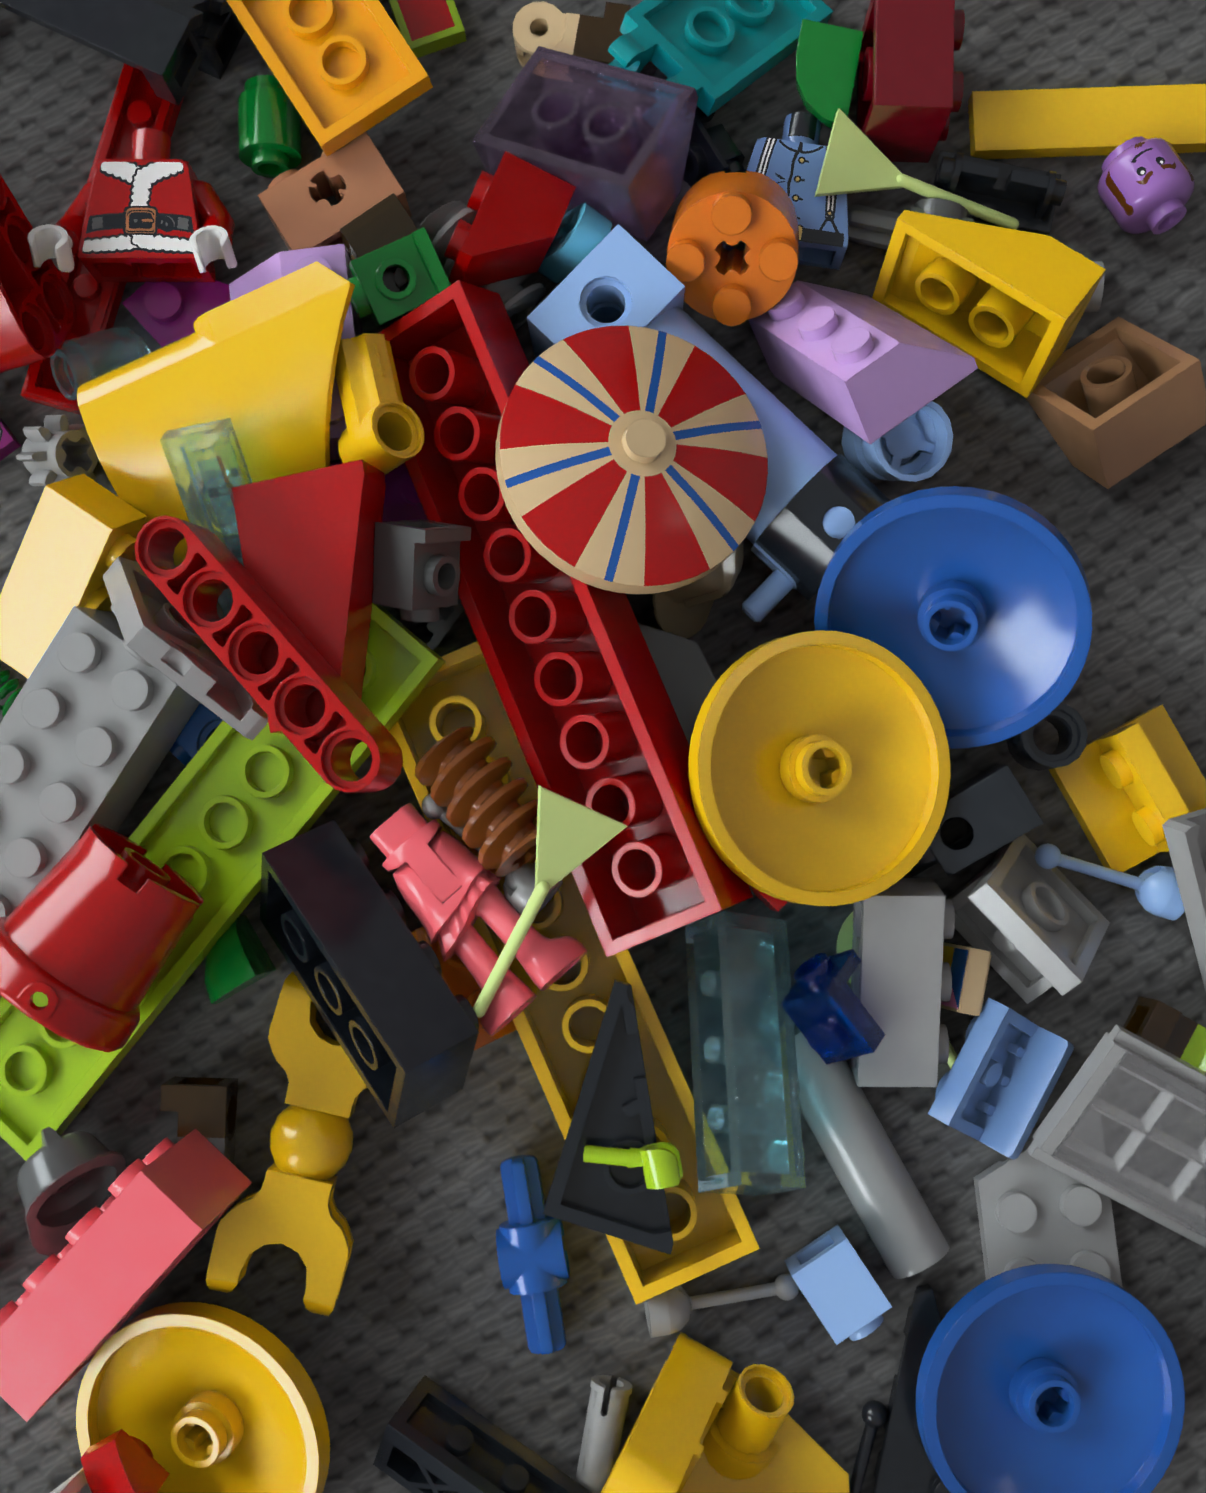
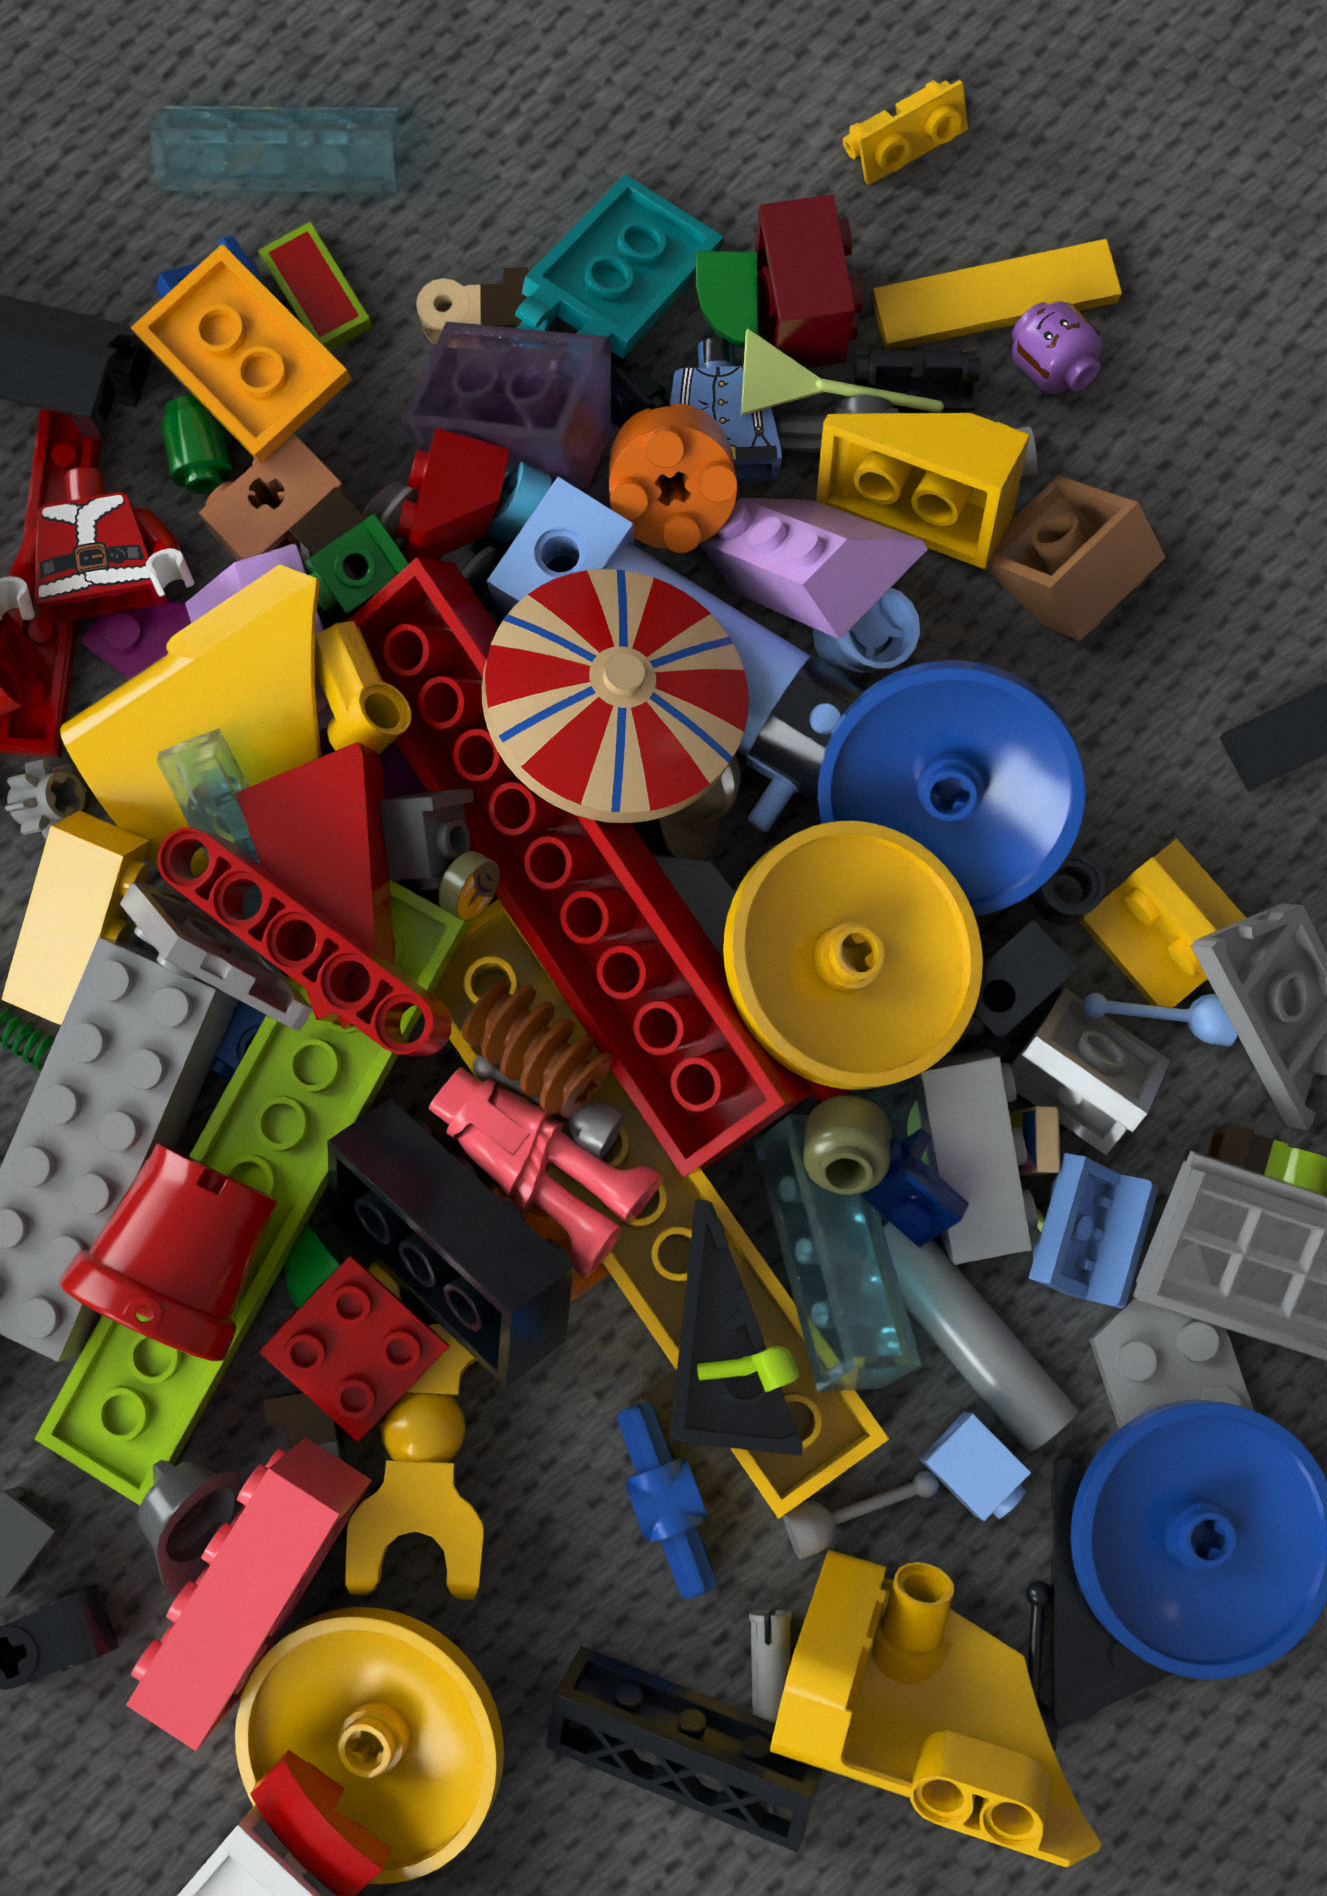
camera: 15 degrees left, 5 degrees down
(93, 356) = (65, 697): clear light blue brick -> none
(255, 1055) = (354, 1348): none -> red hinge
(449, 624) = (469, 885): none -> olive tile
(564, 840) = (621, 1066): yellowish green piece -> none
(776, 955) = (847, 1144): none -> olive head

